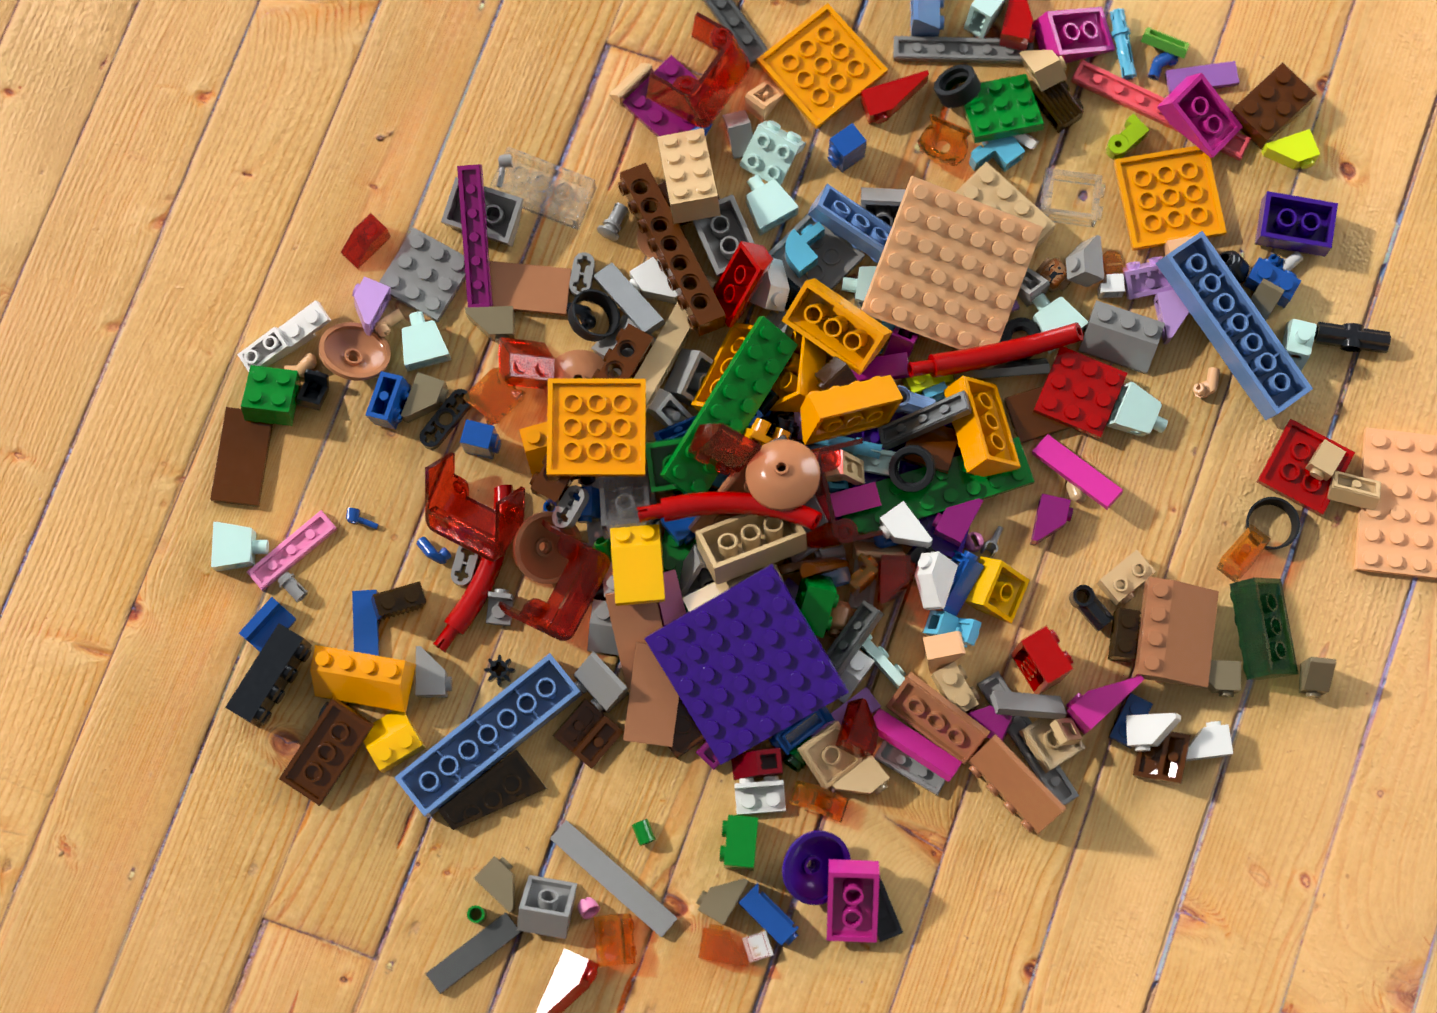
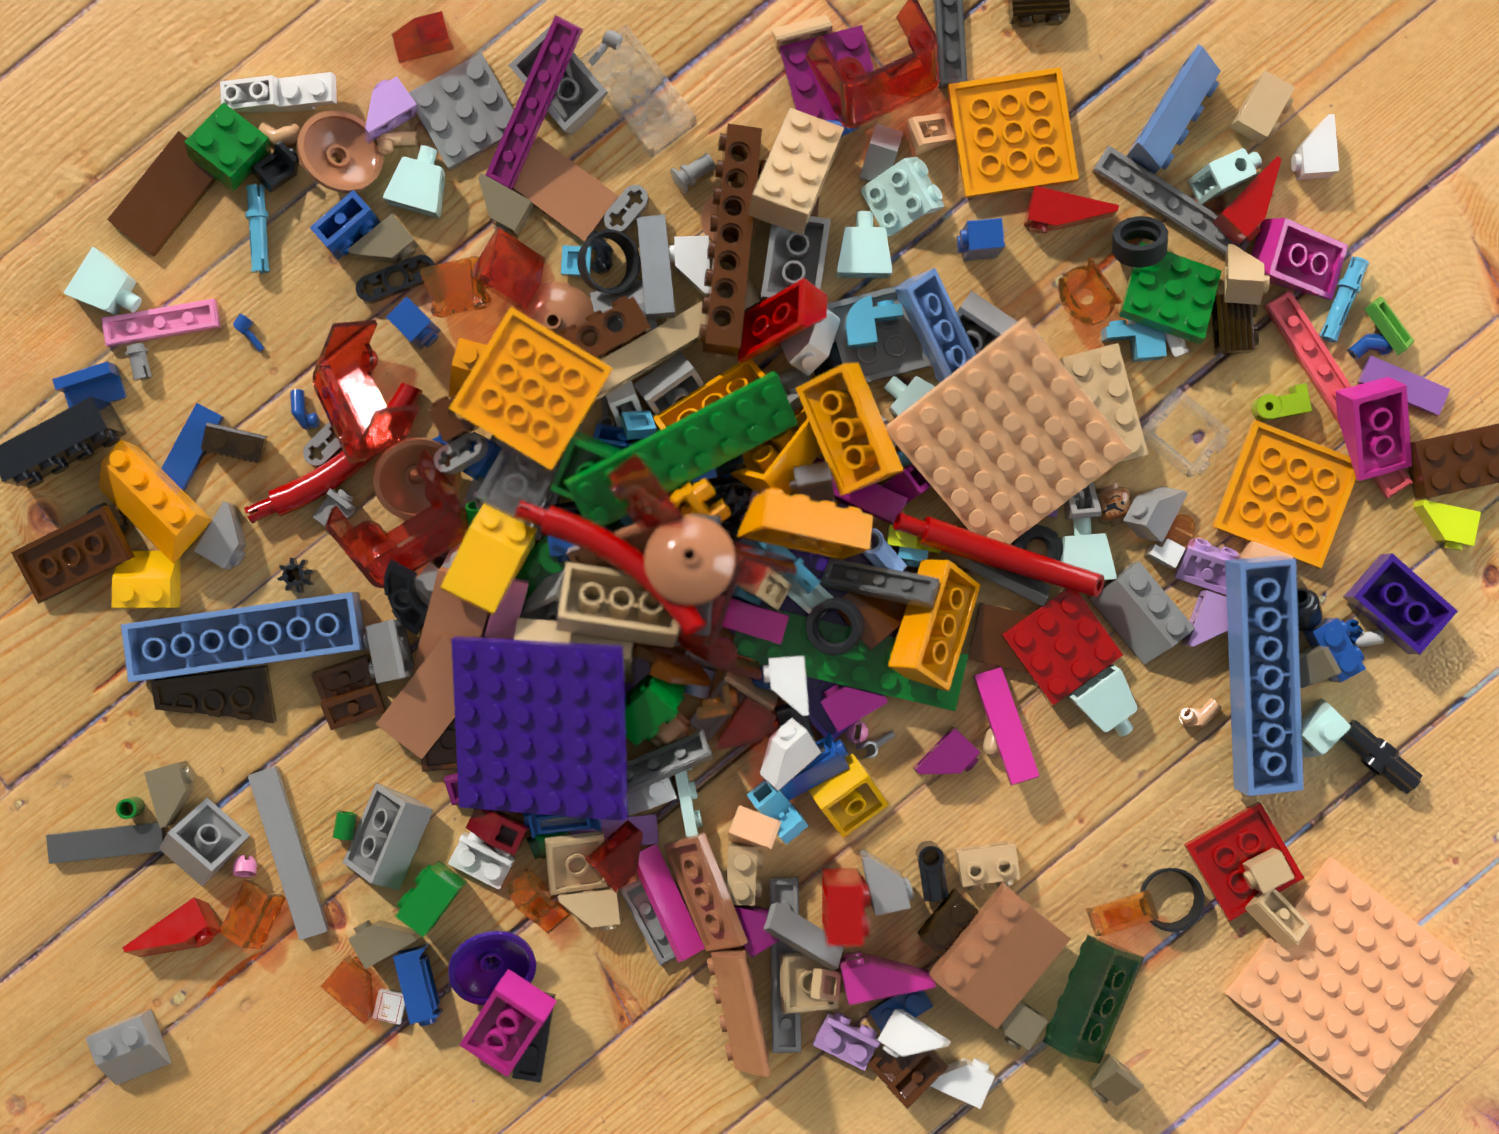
camera: 25 degrees right, 10 degrees up
(321, 437) = (257, 228): none -> medium azure pin
(565, 332) = (569, 260): none -> medium azure plate
(589, 636) = (403, 597): none -> black tile
(656, 426) = (606, 417): none -> light grey hand
(680, 820) = (387, 837): none -> light grey slope
(684, 414) = (638, 424): none -> medium azure plate
(1069, 630) = (886, 885): none -> light grey slope
(1106, 767) = (846, 1040): none -> lavender bracket

